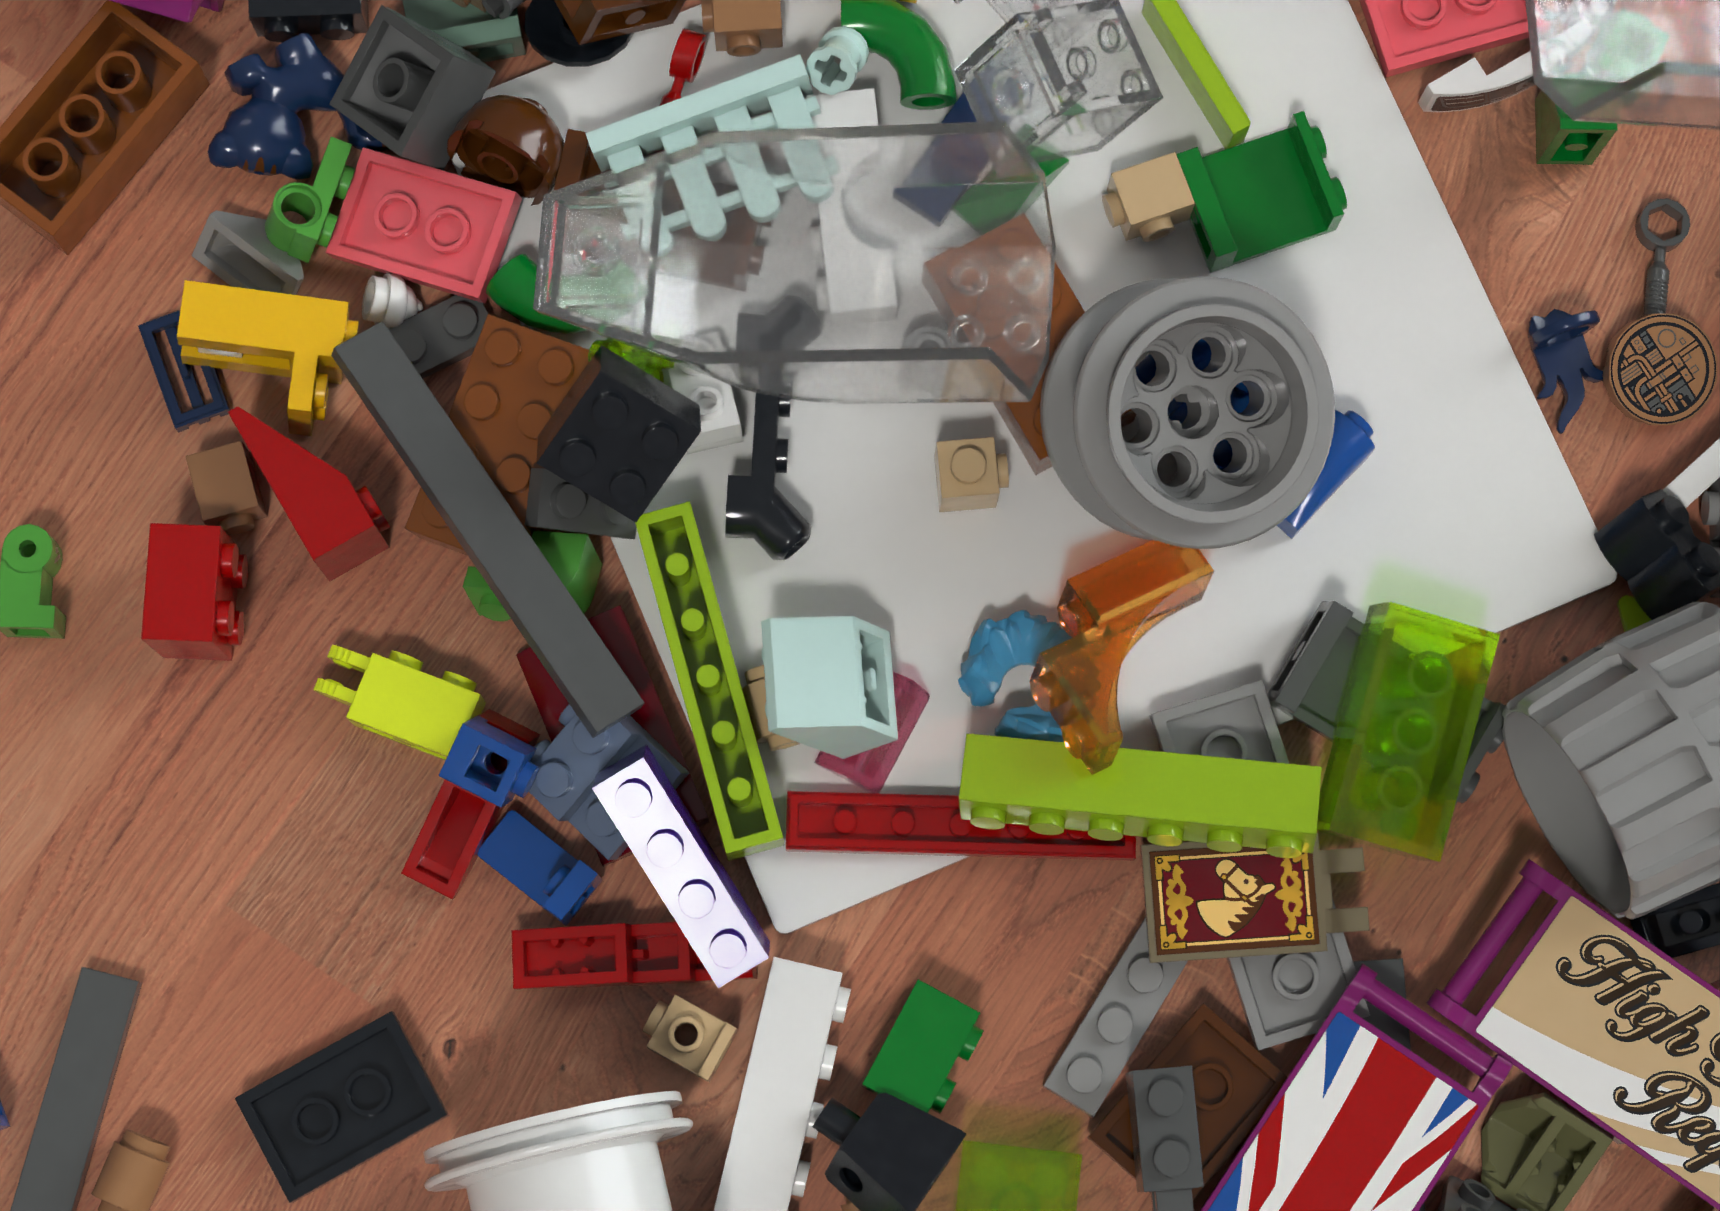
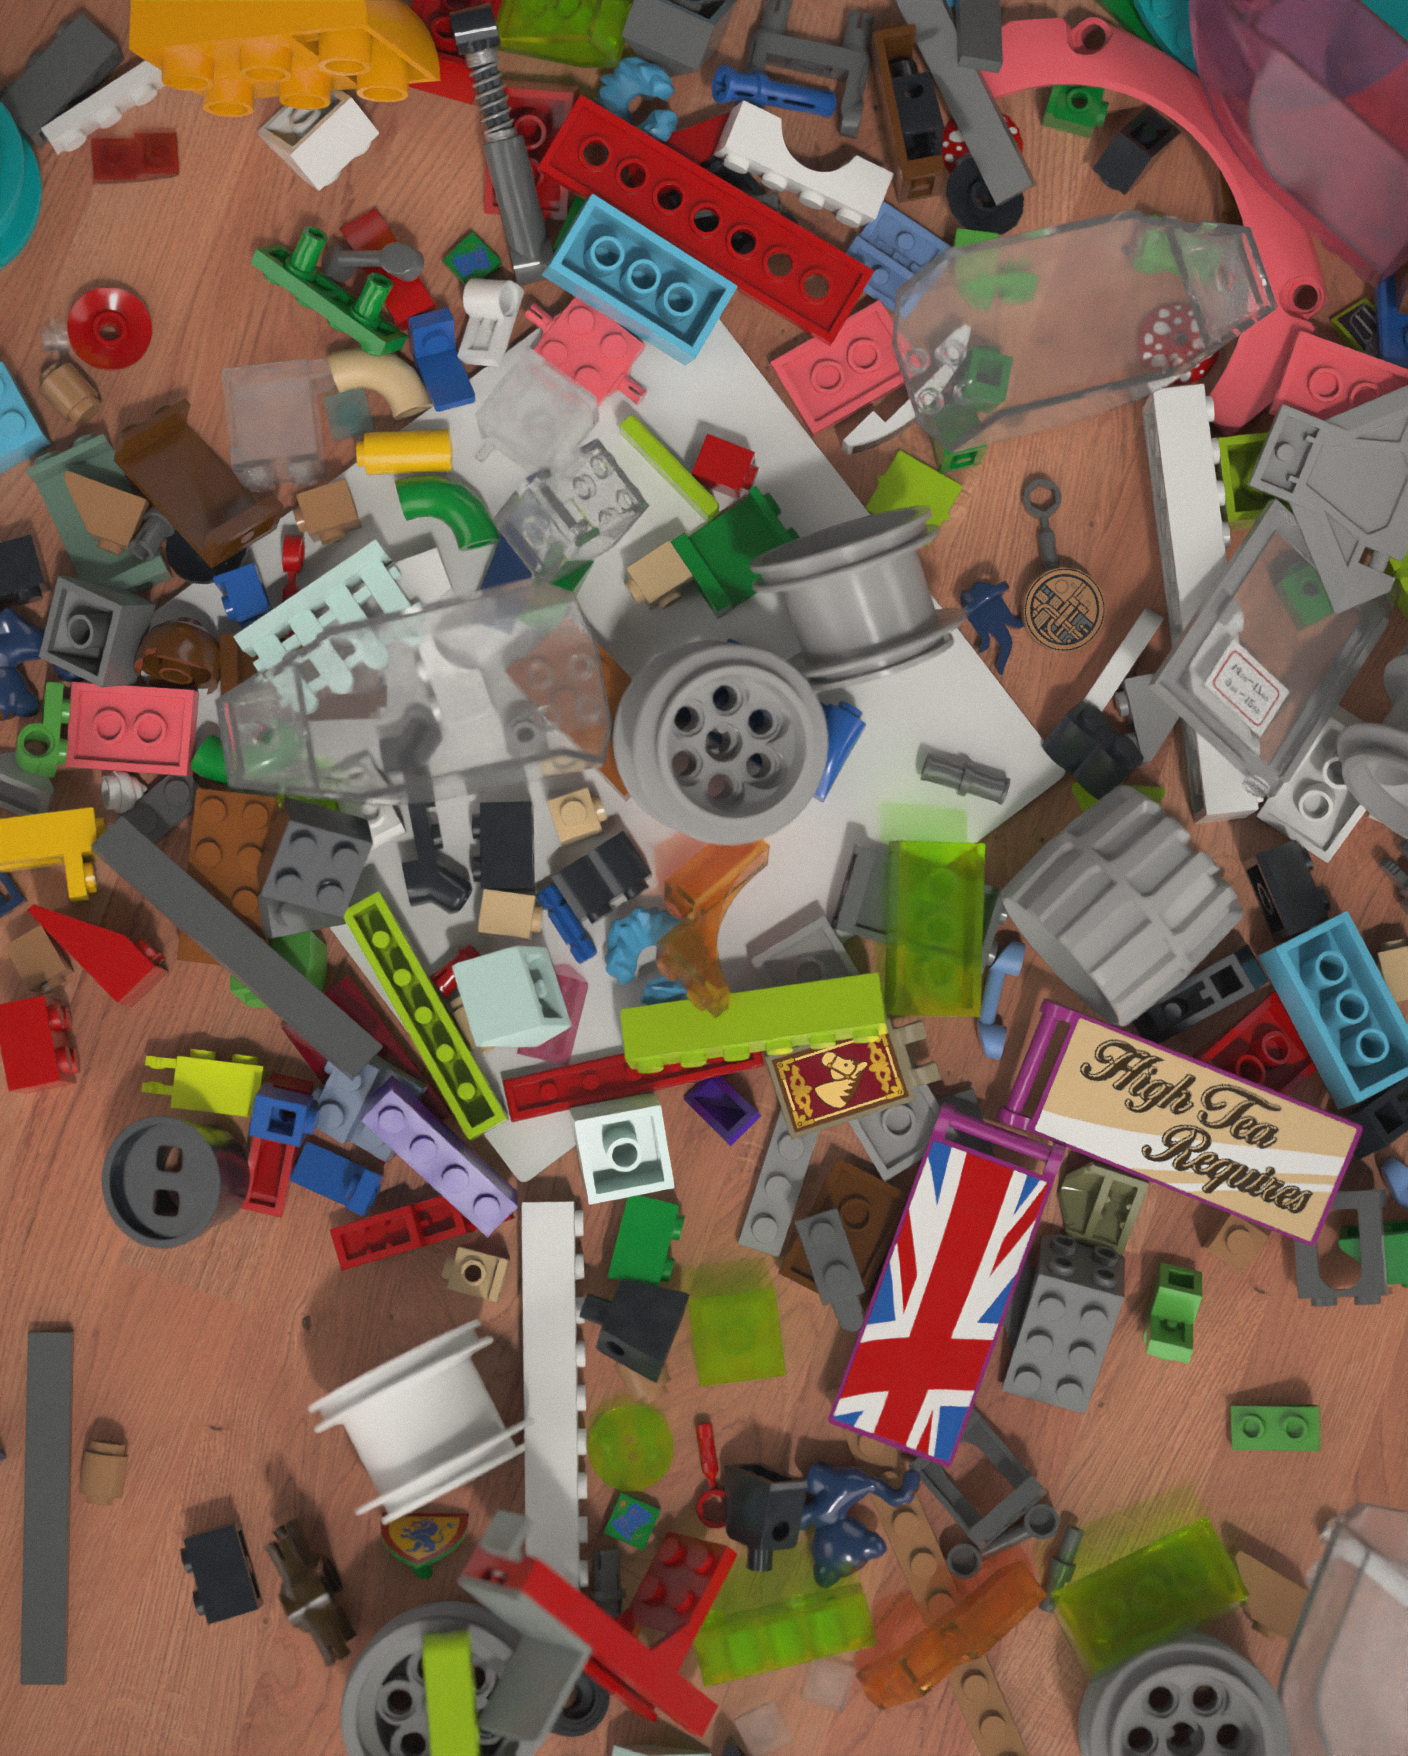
camera: 10 degrees left, 5 degrees up
(341, 1107) = (240, 1385): black plate -> none
(371, 825) = (209, 1184): none -> black piece
(613, 88) = (246, 594): none -> blue brick
(748, 638) = (445, 977): none -> red pin
(849, 47) = (404, 533): light aqua bush -> none
(850, 579) = (509, 915): none -> tan brick
(867, 490) = (505, 846): none -> black brick
(921, 610) = (566, 923): none -> blue axle
(923, 918) = (622, 1147): none -> light aqua brick
(983, 562) = (602, 878): none -> black brick
(1068, 901) = (722, 1108): none -> dark purple slope
(1268, 81) = (725, 467): none -> red brick
(1413, 276) = (859, 598): none -> light grey wheel
(1441, 895) = (992, 1035): none -> medium blue bar
(1486, 552) = (965, 779): none -> dark grey pin
(1497, 185) = (914, 484): none -> lime piece

